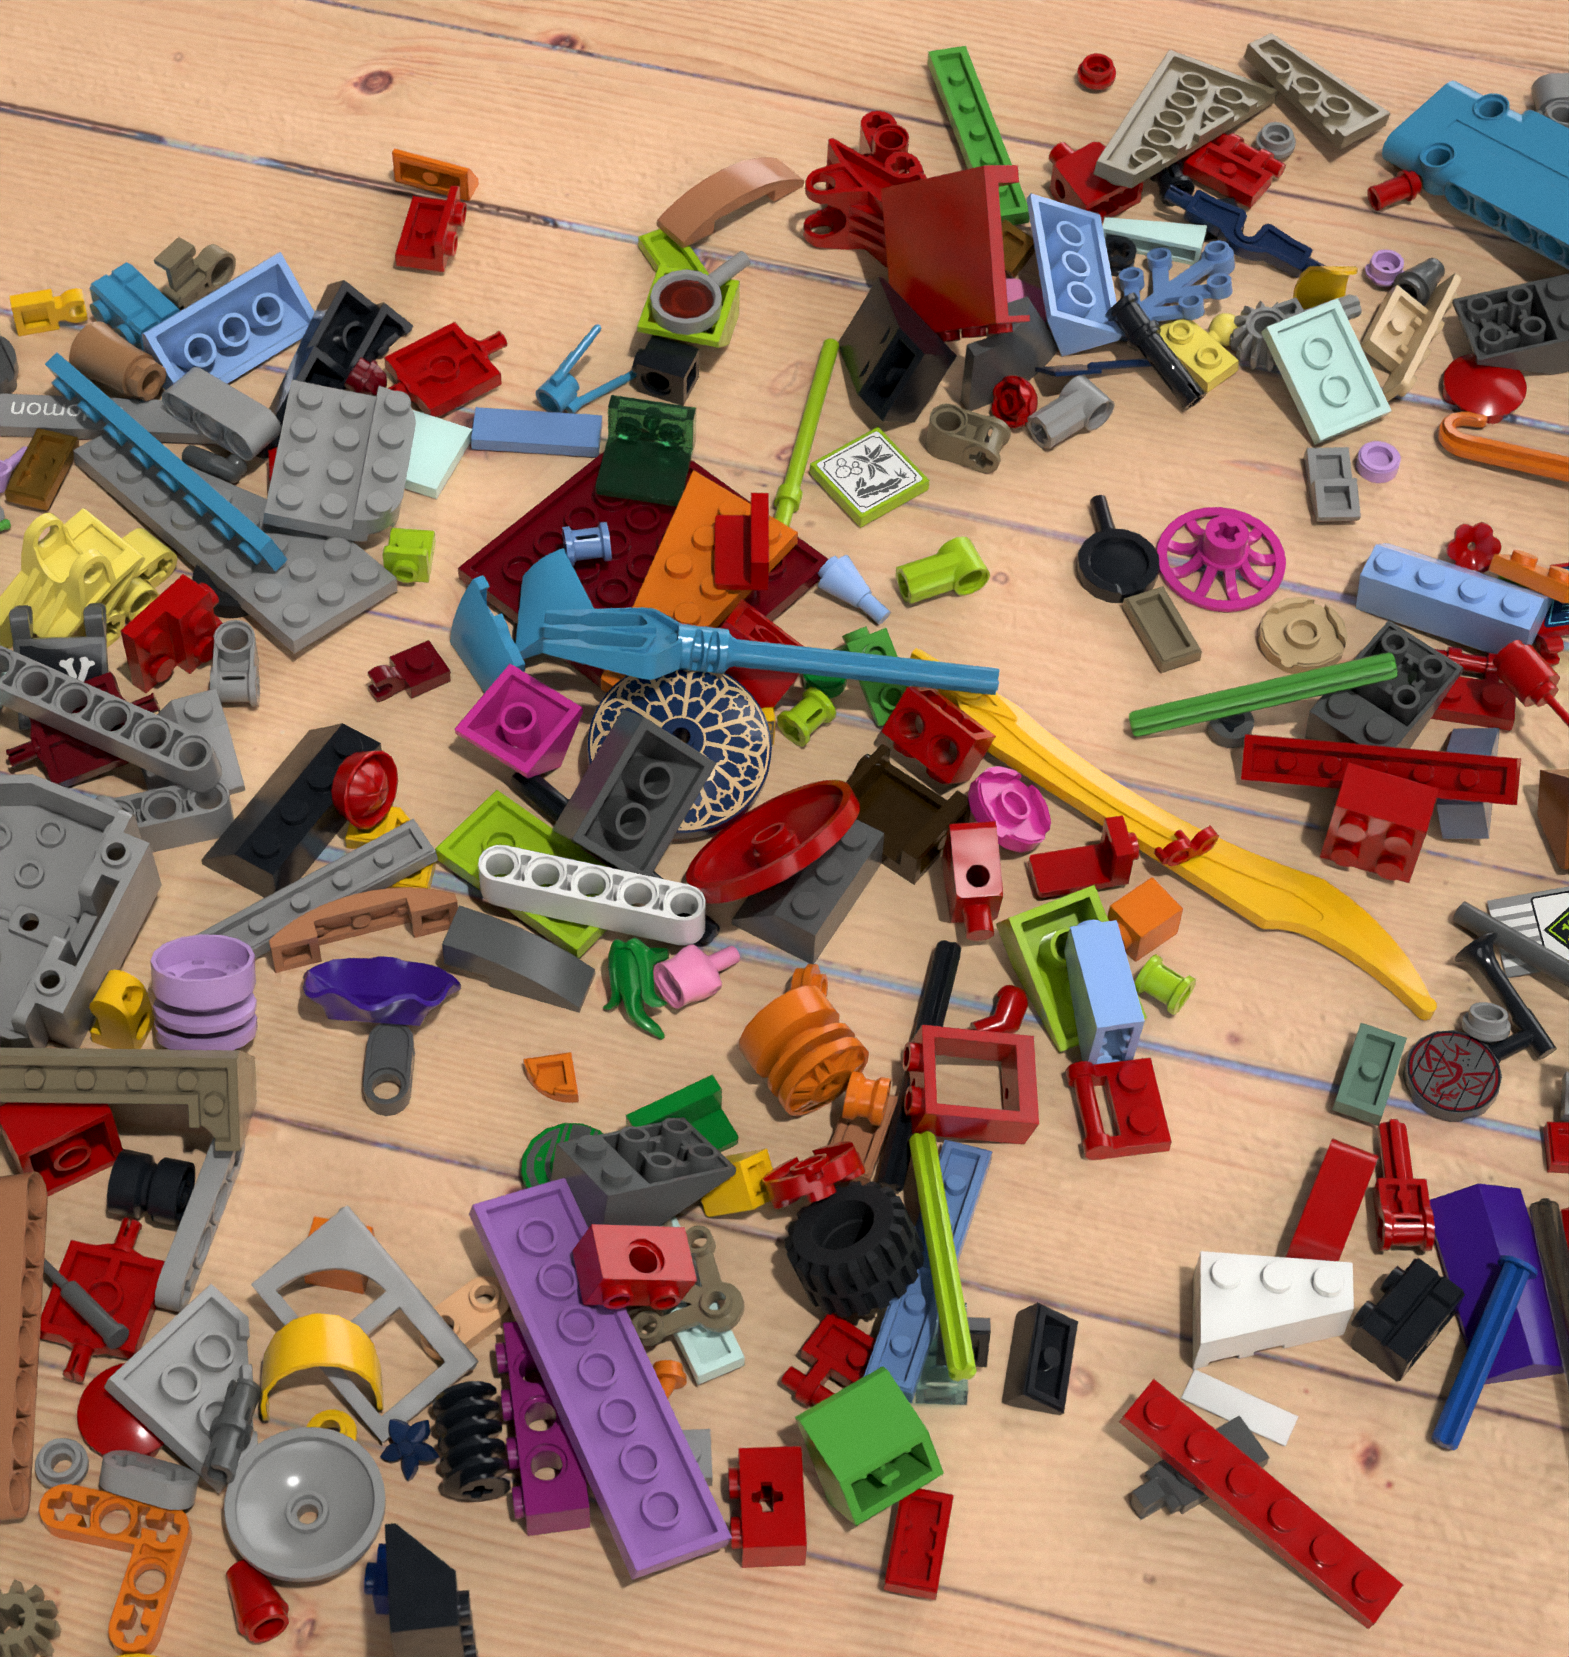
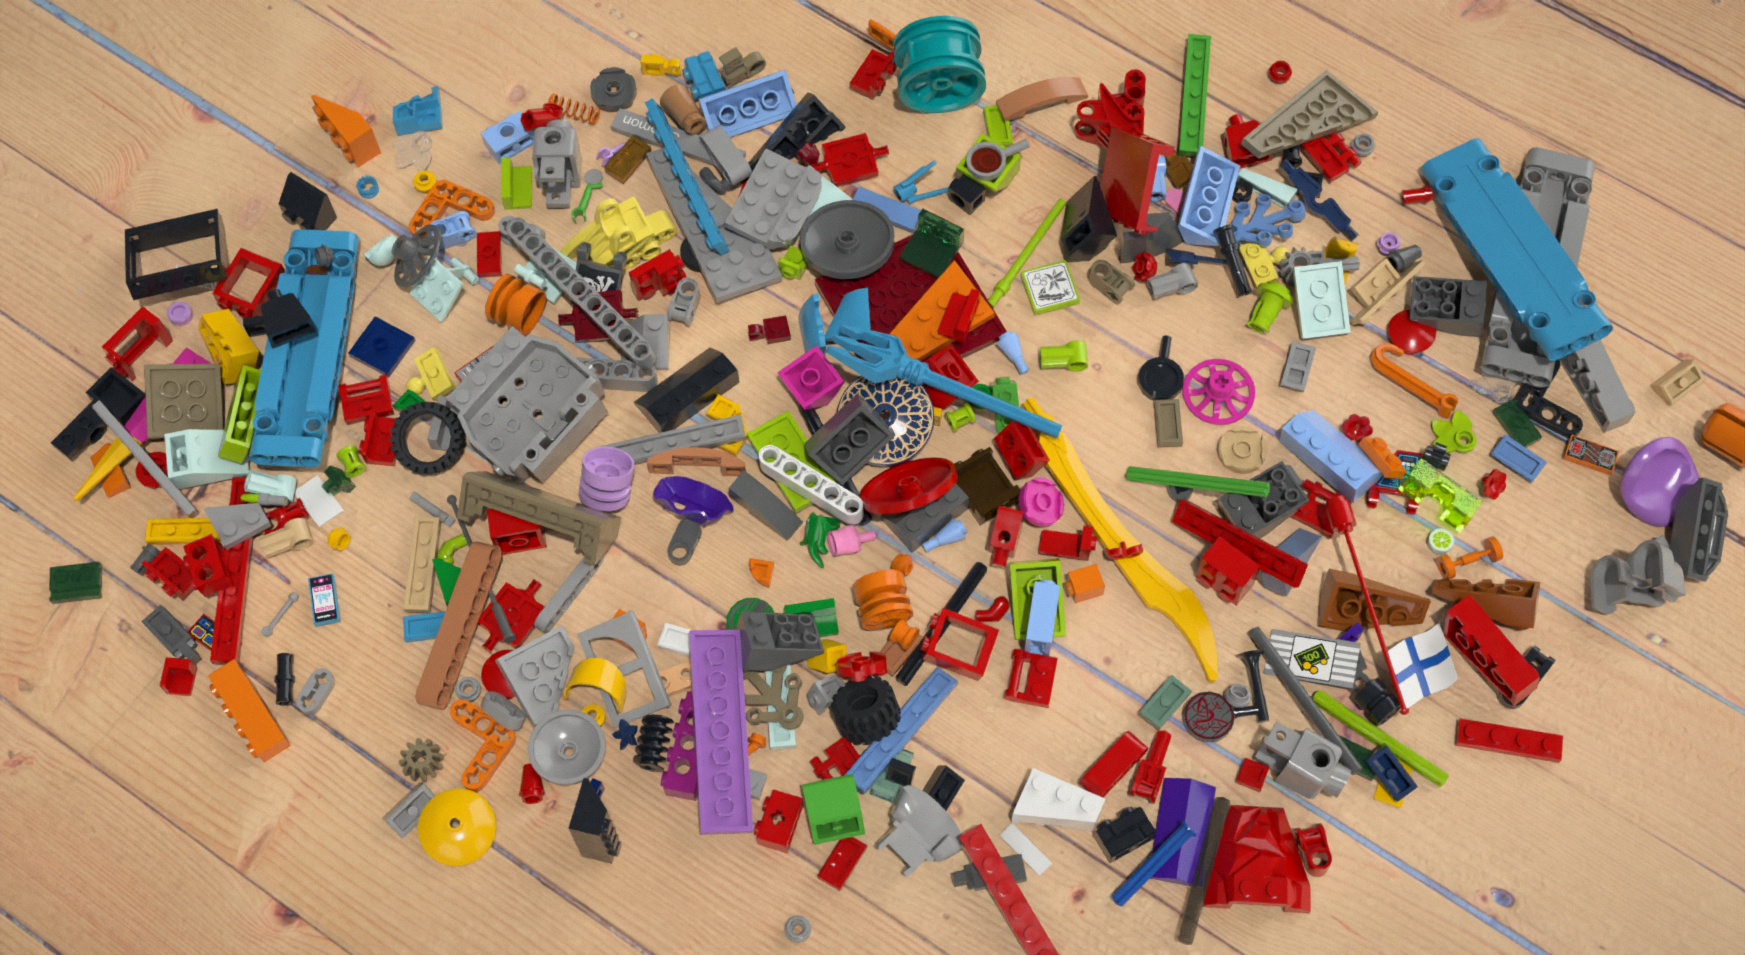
camera: 25 degrees right, 10 degrees up
(119, 1009) = (564, 473): yellow leg -> none
(143, 1186) = (548, 565): black wheel -> none
(231, 1431) = (545, 701): dark grey pin -> none
(365, 788) = (721, 392): red hat -> none
(445, 1246) = (674, 639): none -> white tile
(492, 487) = (847, 239): none -> dark grey dish
(526, 141) = (939, 64): none -> teal wheel
(587, 543) = (882, 287): medium blue bush -> none
(634, 1266) = (769, 685): red brick -> none
(759, 1250) = (822, 692): none -> light grey bracket
(872, 907) = (950, 533): none -> light blue cone
(942, 1257) = (905, 727): lime axle -> none
(1042, 1434) = (920, 829): none -> light grey piece
(1164, 984) = (1081, 621): lime bush -> none
(1246, 390) = (1272, 299): none -> lime piece
(1319, 95) = (1401, 124): dark tan wing -> none
(1378, 462) = (1330, 360): lavender tile -> none

